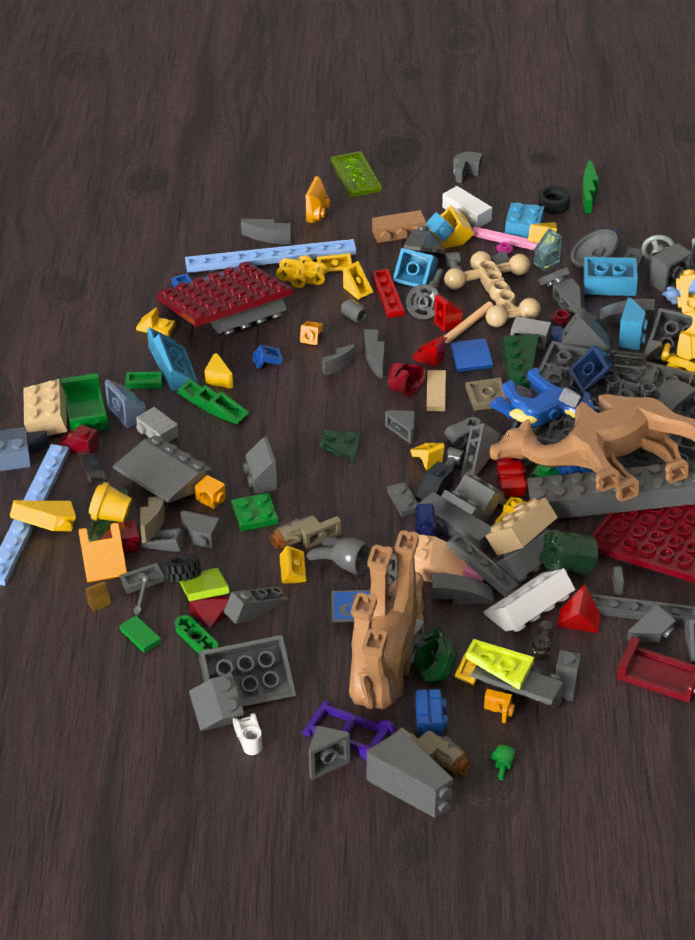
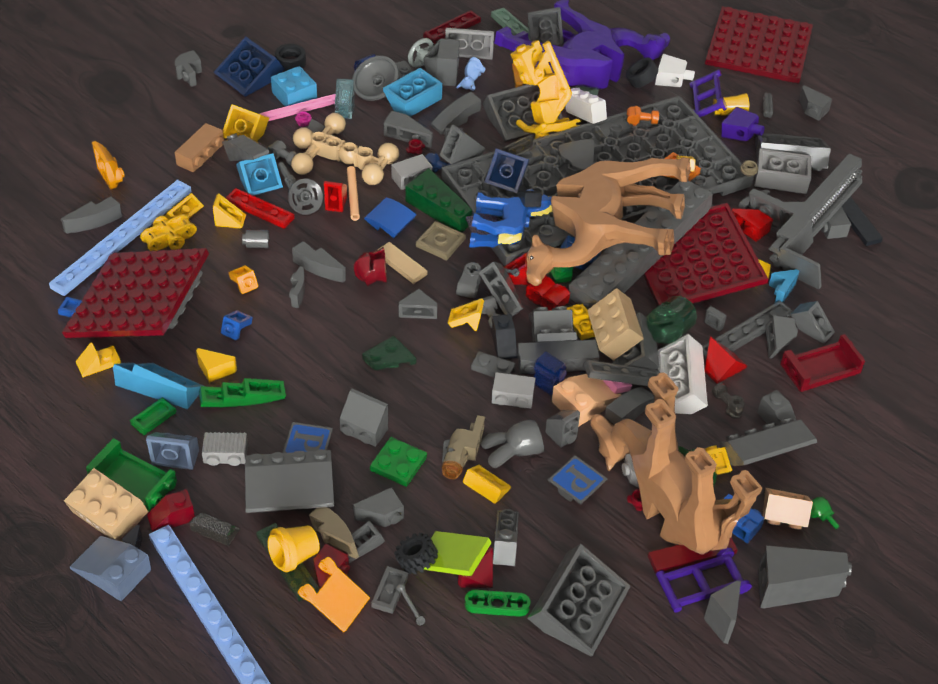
camera: 50 degrees left, 5 degrees up
(45, 514) = (240, 600): yellow slope -> none
(98, 596) = (376, 637): pearl gold slope -> none
(140, 634) = (450, 639): green tile -> none
(210, 492) = (347, 471): light orange brick -> none
(213, 455) = (307, 438): none -> piece
(216, 702) = (598, 643): dark grey slope -> none
(249, 734) = (644, 645): white piece -> none
(340, 699) = (681, 556): none -> dark red tile
(356, 174) = (101, 125): clear neon green tile -> none
(389, 520) = (513, 390): none -> light grey brick
(432, 352) = (360, 234): red slope -> none
(439, 226) = (242, 126): dark azure brick -> none
(442, 751) = (781, 537): dark tan plate -> none
(475, 210) = (220, 99): white brick -> none
(475, 733) = (786, 508): none -> light nougat slope
(499, 702) = (770, 469): light orange bracket -> none
(501, 662) = (754, 436): neon yellow wing -> none
(511, 186) = (248, 67): none -> dark blue slope
(538, 230) = (325, 87): yellow slope -> none
(554, 277) = (374, 117): dark grey plate -> none
(590, 187) = (303, 34): green slope -> none
(632, 326) = (479, 120): dark azure slope -> none
(653, 349) = (512, 131): dark grey slope -> none

